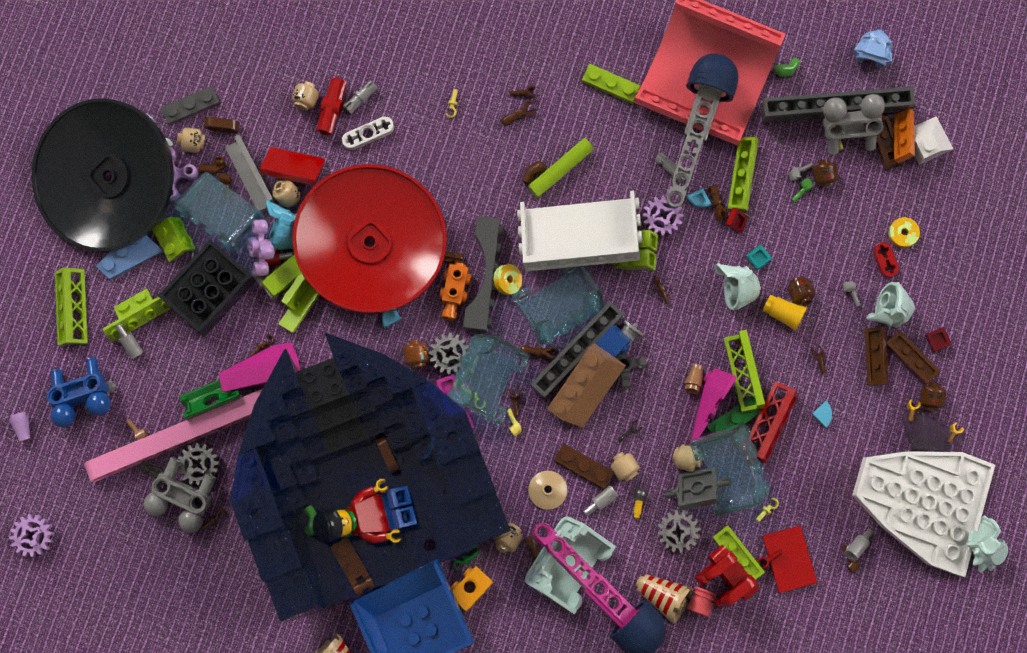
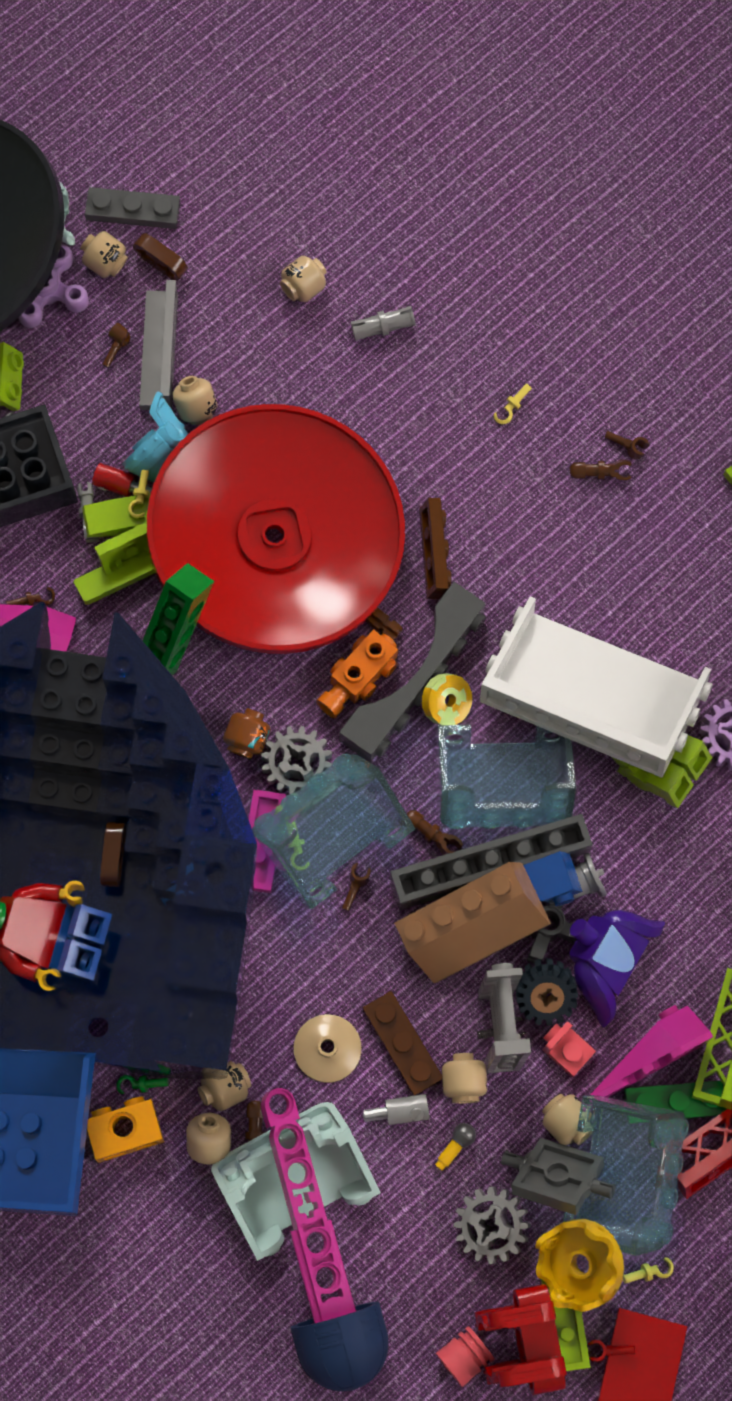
camera: 25 degrees right, 5 degrees down
(213, 169) = (113, 312): reddish brown arm -> none
(219, 211) = (83, 376): clear light blue windscreen -> none
(260, 248) = (109, 455): lavender gear -> none
(288, 259) = (141, 493): none -> light yellow hand
(292, 166) = (226, 366): red tile -> none
(331, 106) = (333, 314): red piece -> none
(348, 313) = (177, 615): none -> green brick
(382, 133) = (340, 387): white beam -> none
(390, 318) = (241, 662): medium azure tile -> none
(456, 203) = (434, 548): none -> reddish brown plate
(515, 428) = (332, 927): light yellow hand -> none
(515, 568) = (208, 1138): none -> tan head
(532, 169) = (576, 560): reddish brown arm -> none
(560, 168) = (620, 580): lime brick -> none
(634, 399) = (543, 980): none -> black wheel
(639, 439) = (508, 1050): none -> light grey fence
(661, 289) = (671, 842): reddish brown hand -> none
(661, 365) = (607, 955): none -> dark purple torso
(664, 595) = (413, 1314): tan cone -> none
(667, 422) = (567, 1048): none -> coral bracket
(694, 380) = (644, 1009): medium nougat cone -> none
(723, 533) = (559, 1268): none -> yellow plate

